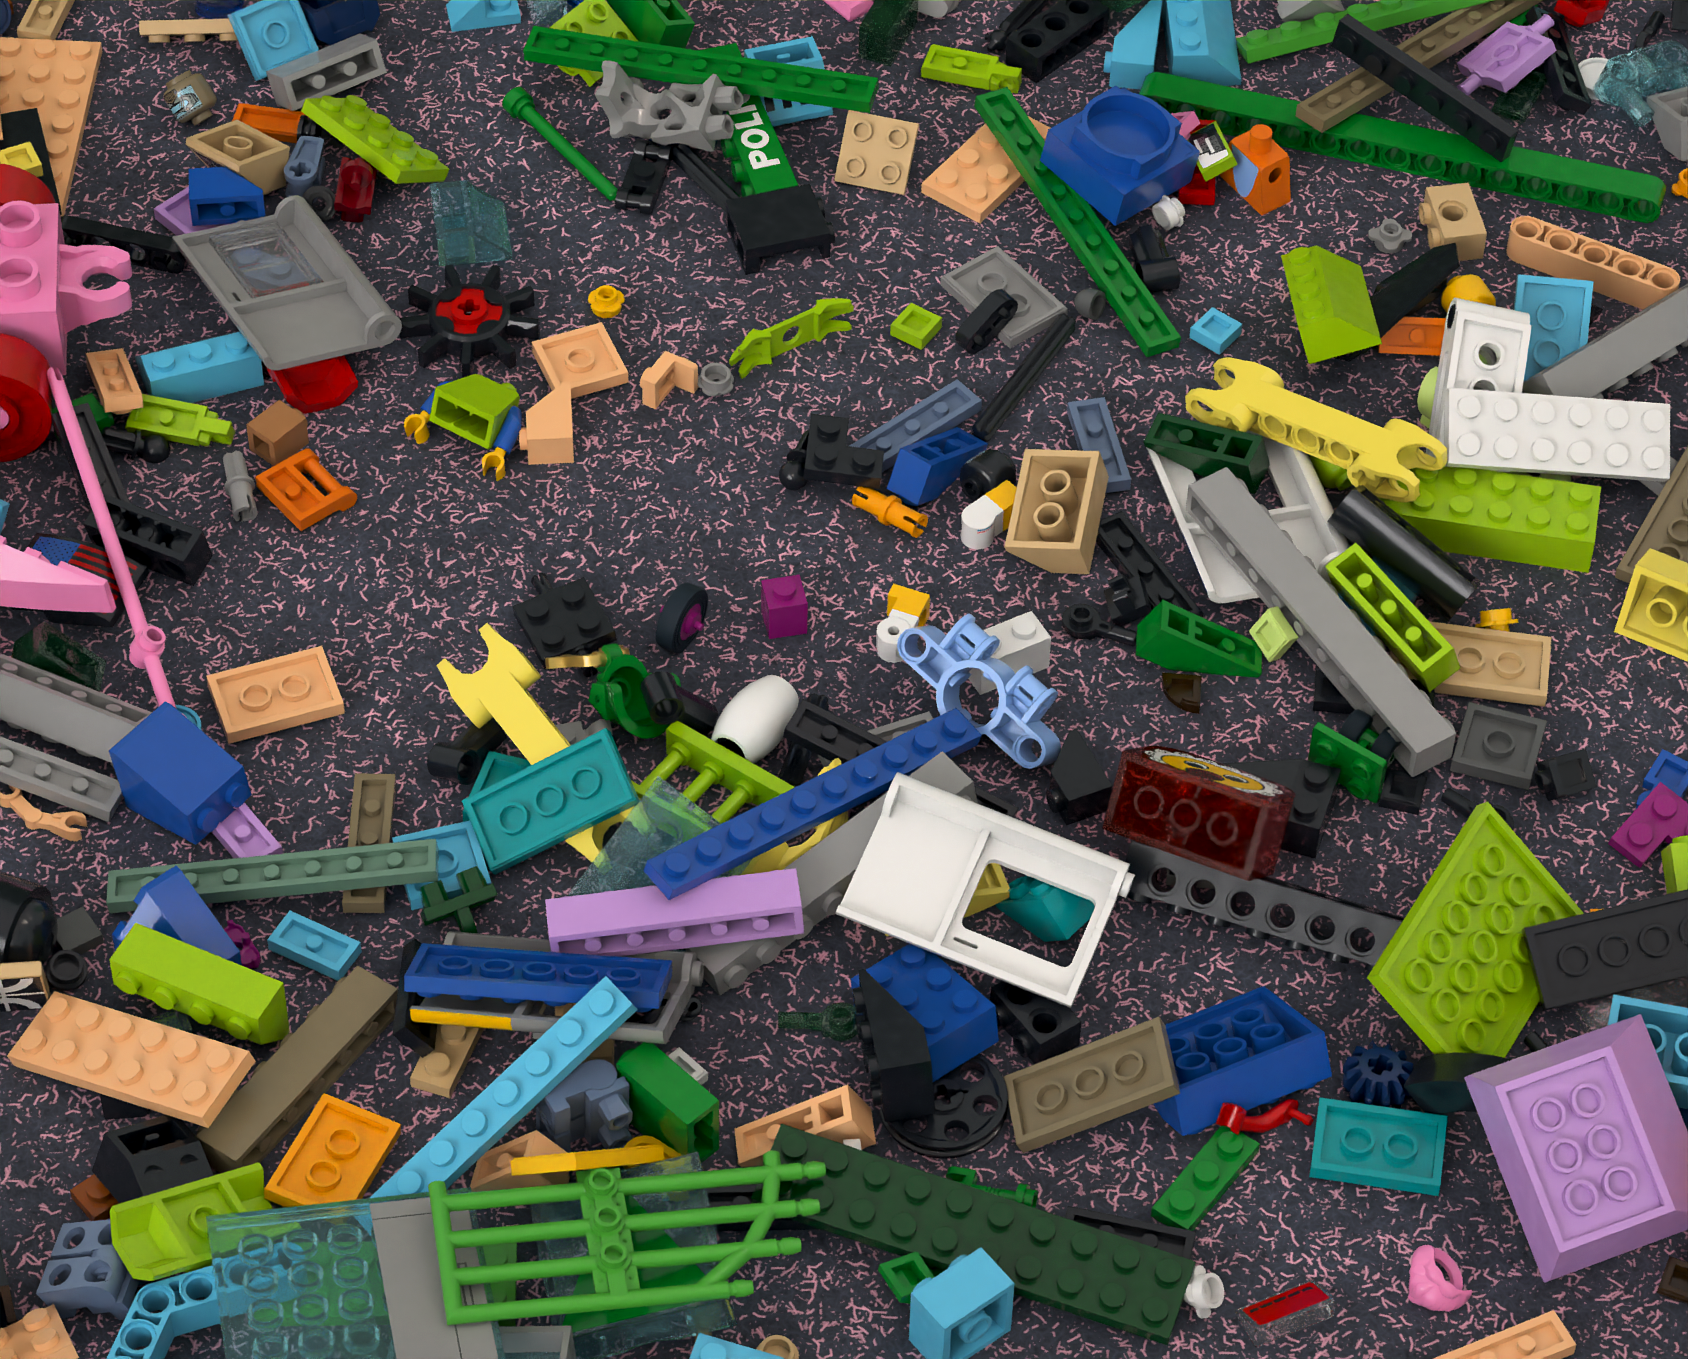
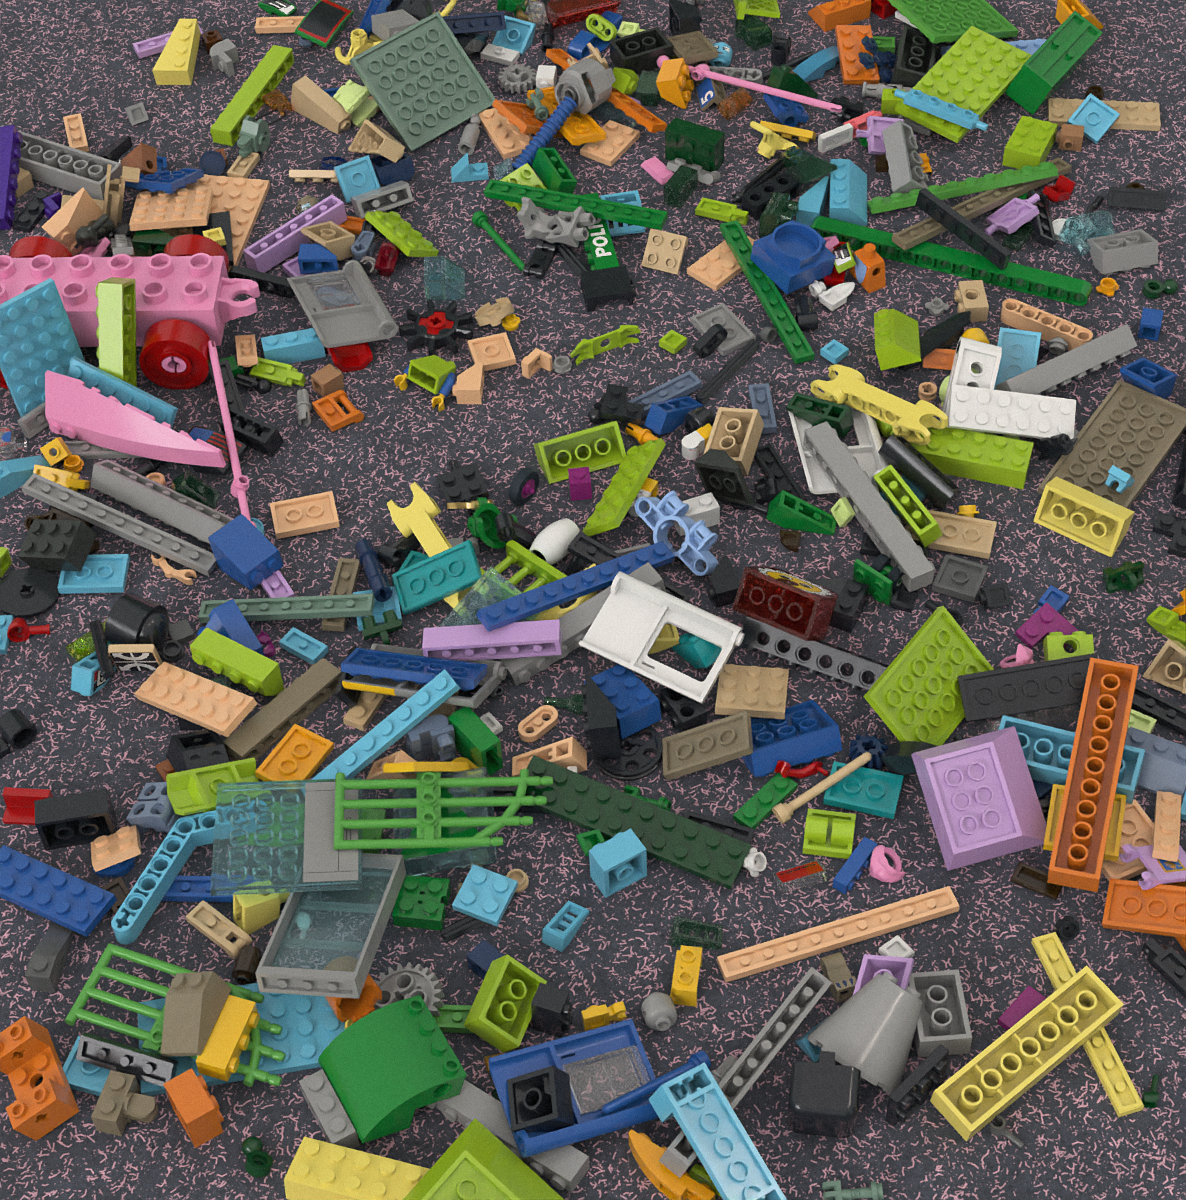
camera: 10 degrees right, 0 degrees up
(162, 154) = (287, 238): none -> lavender brick
(425, 793) = (376, 578): none -> dark blue piece
(575, 285) = (494, 313): none -> tan plate
(769, 1065) = (536, 723): none -> light nougat plate
(780, 540) = (590, 447): none -> lime slope
(869, 610) = (624, 487): none -> lime plate
(1052, 582) = (723, 477): none -> pearl dark grey slope
(1077, 74) = (777, 212): none -> clear green hips
(1156, 976) = (752, 689): none -> tan plate
(1205, 223) = (836, 295): none -> white plate
(1242, 1195) = (784, 811): none -> tan piece
(1329, 1230) = (829, 833): none -> lime plate
(1380, 1286) = (854, 866): none -> blue piece
(1393, 407) = (927, 386): none -> light nougat bush
(1617, 300) = (1057, 345): none -> light grey plate
(1633, 887) = (1023, 656): none -> bright pink piece
(1640, 491) = (1055, 446): none -> black hinge

